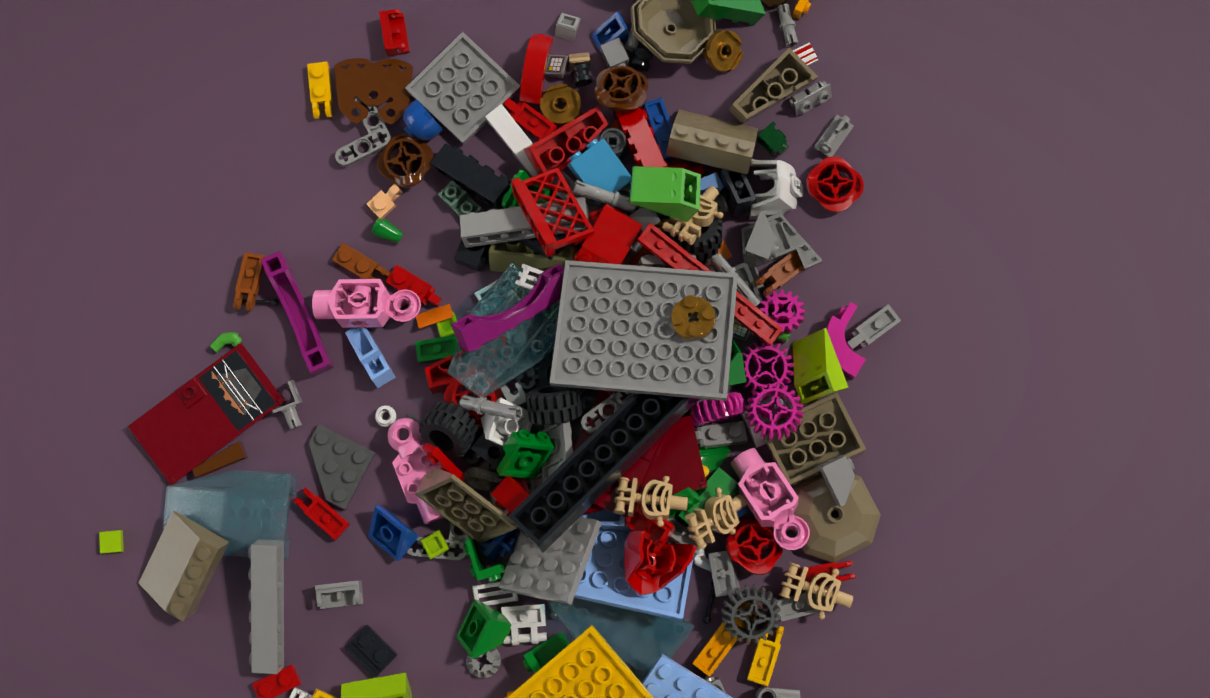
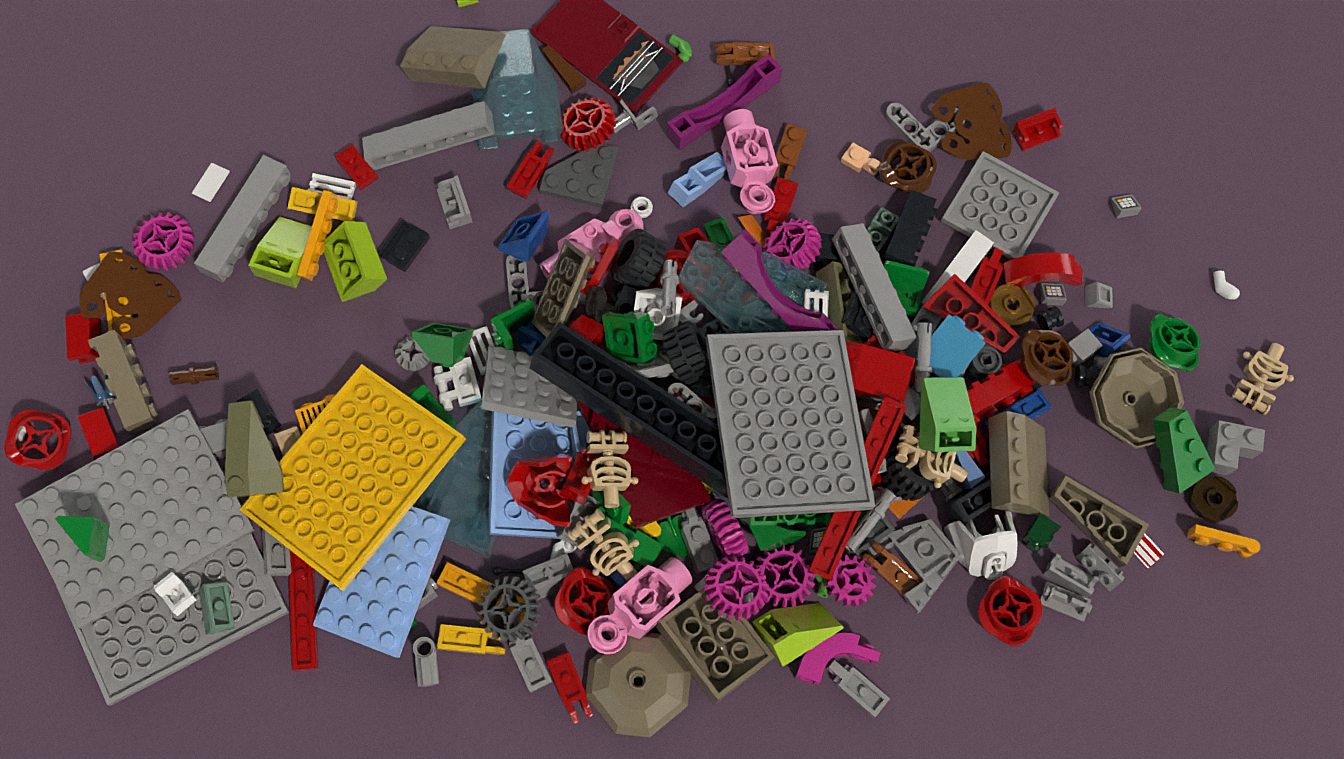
camera: 70 degrees right, 10 degrees down
(282, 432) = (587, 124): none -> red gear
(320, 87) = (958, 76): yellow hinge -> none
(386, 230) = (830, 166): green cone -> none
(420, 122) = (951, 171): blue cylinder -> none
(434, 544) = (520, 279): lime tile -> none
(470, 279) = (794, 243): none -> dark pink gear
(534, 213) = (884, 287): red fence -> none
(579, 58) = (1068, 315): tan slope -> none
(704, 313) = (801, 470): pearl gold plate -> none
(714, 47) = (1129, 470): pearl gold plate -> none
(762, 240) = (925, 540): light grey slope -> none
(787, 25) = (1175, 524): light grey pin -> none
(813, 125) = (1070, 576): none -> light grey hinge
(835, 596) = (547, 701): tan torso -> none
(839, 477) = (678, 671): light grey slope -> none

